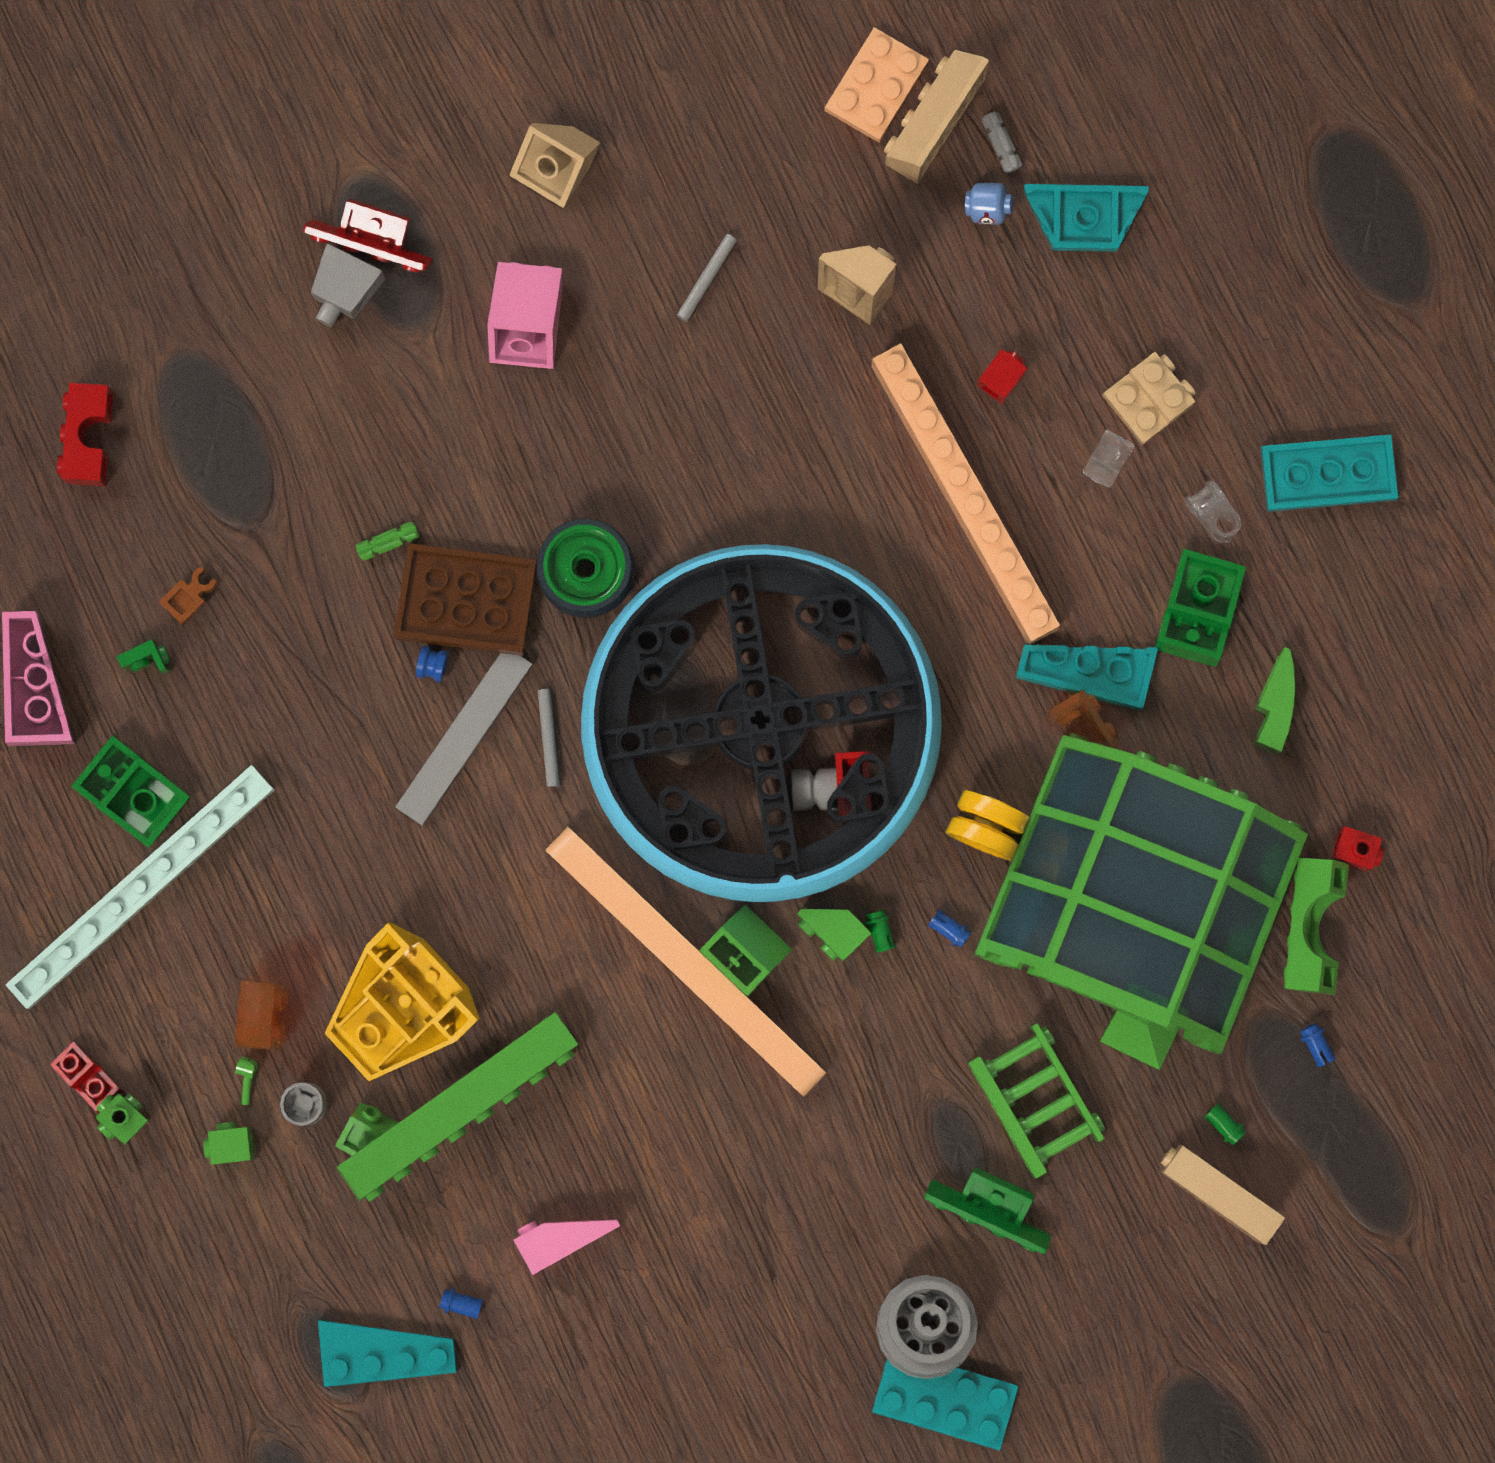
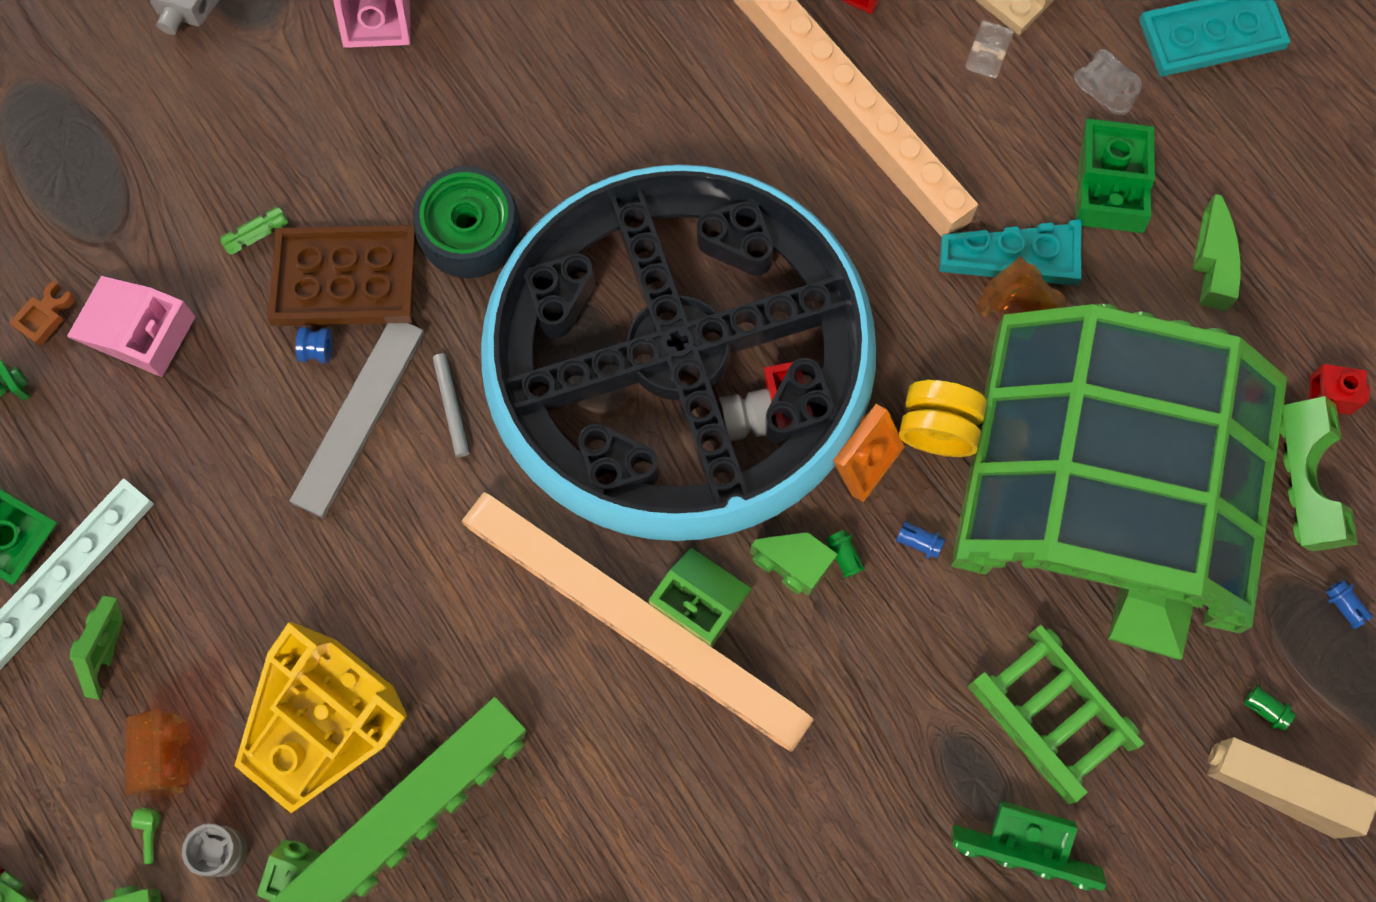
camera: 15 degrees left, 10 degrees down
(216, 916) = (96, 645): none -> bright green wing
(268, 618) = (133, 324): none -> bright pink slope
(916, 846) = (869, 452): none -> orange plate

